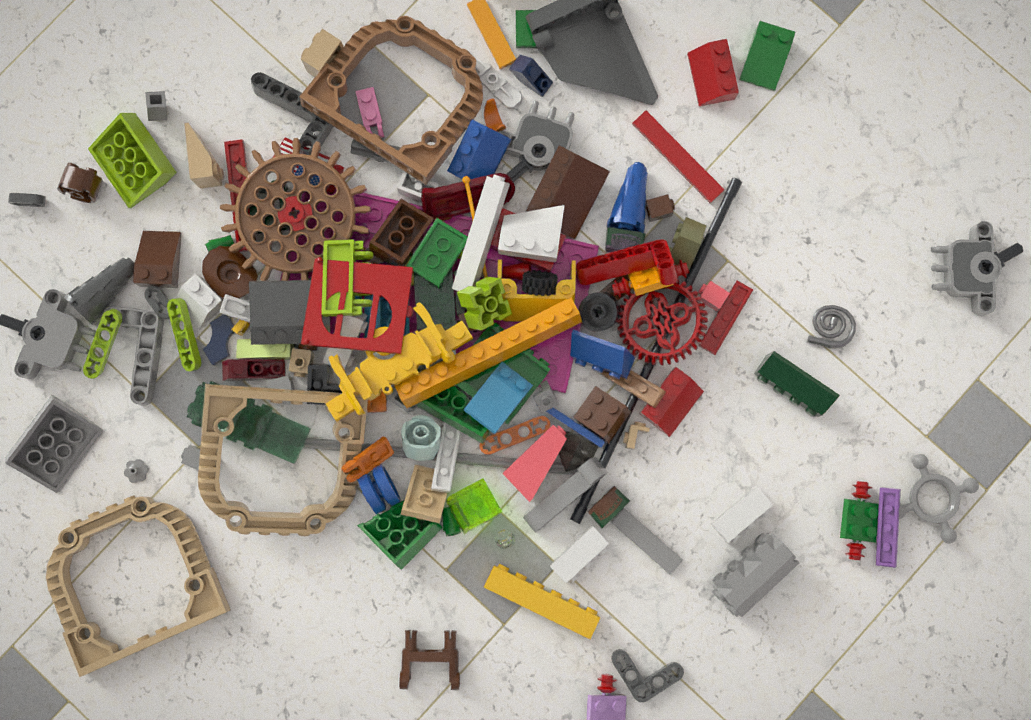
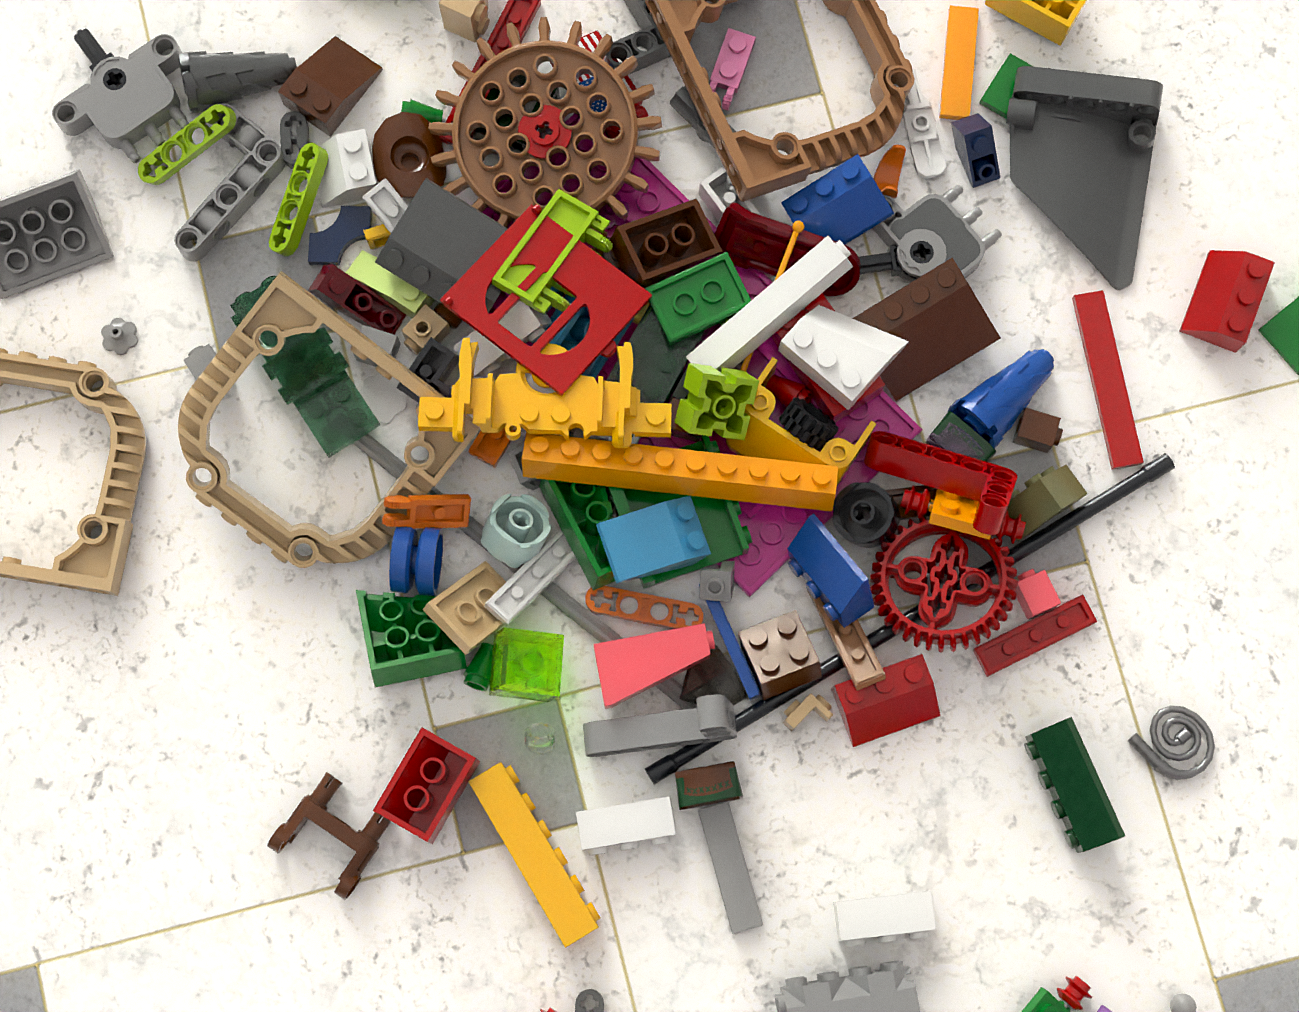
camera: 30 degrees right, 5 degrees down
(463, 603) = (426, 785): none -> red slope

